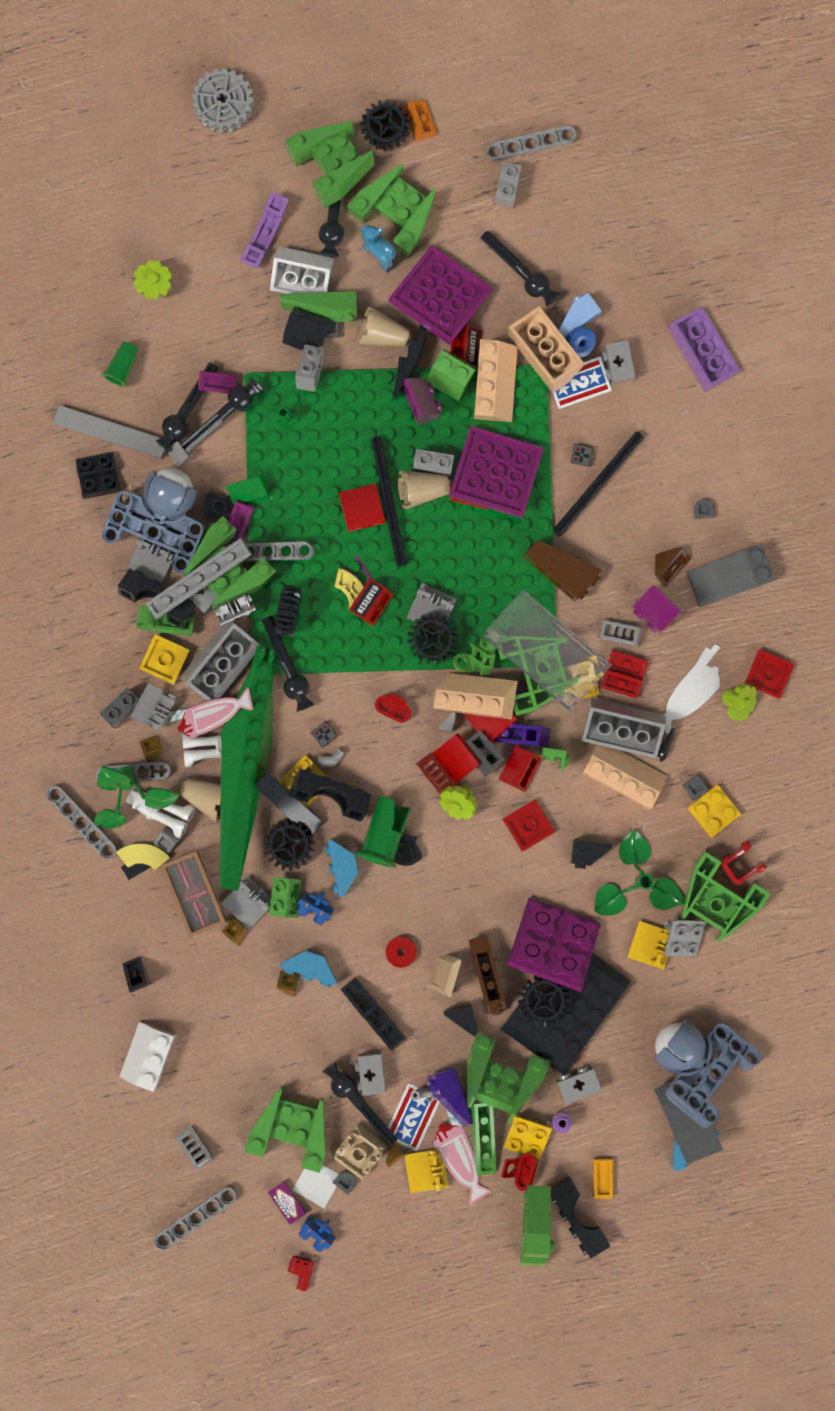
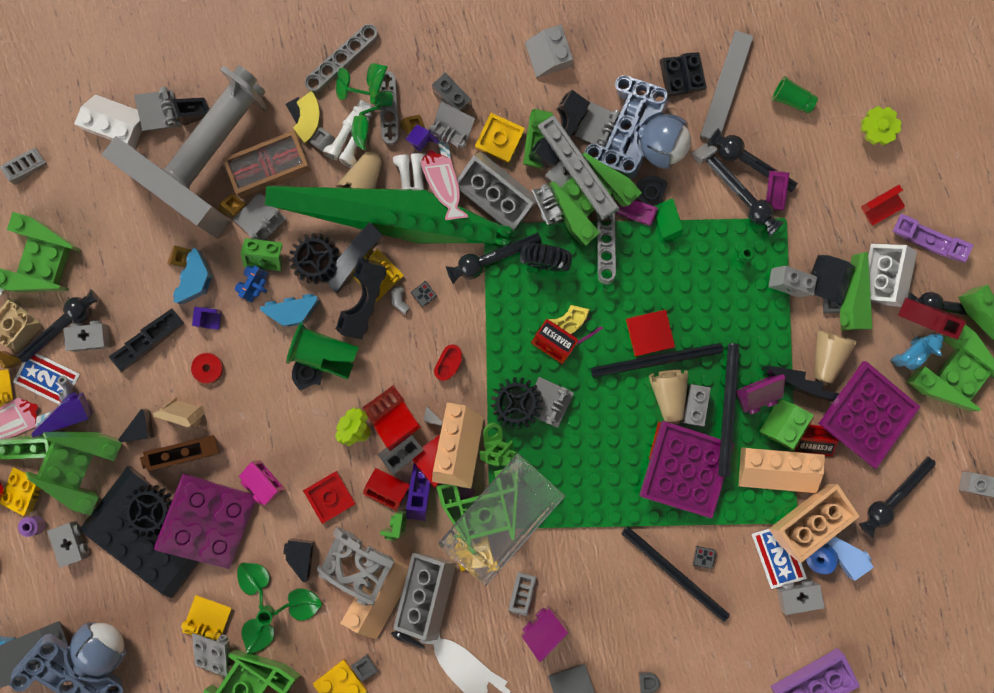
camera: 100 degrees right, 0 degrees up
(75, 610) = (549, 51): none -> light grey slope
(136, 1009) = (156, 110): none -> light grey hinge
(164, 739) = (420, 137): none -> dark purple panel
(214, 983) = (174, 180): none -> light grey piece
(231, 277) = (883, 205): none -> red panel
(345, 234) = (932, 318): none -> dark red slope
(350, 952) = (206, 318): none -> dark purple panel
(437, 431) = (728, 410): none -> black axle
(515, 893) = (261, 482): none -> dark pink slope
(562, 569) = (586, 536): reddish brown slope -> none
(585, 816) = (332, 566): none -> light grey fence
(625, 673) = (480, 599): red slope -> none
(669, 564) = (591, 645): reddish brown slope -> none

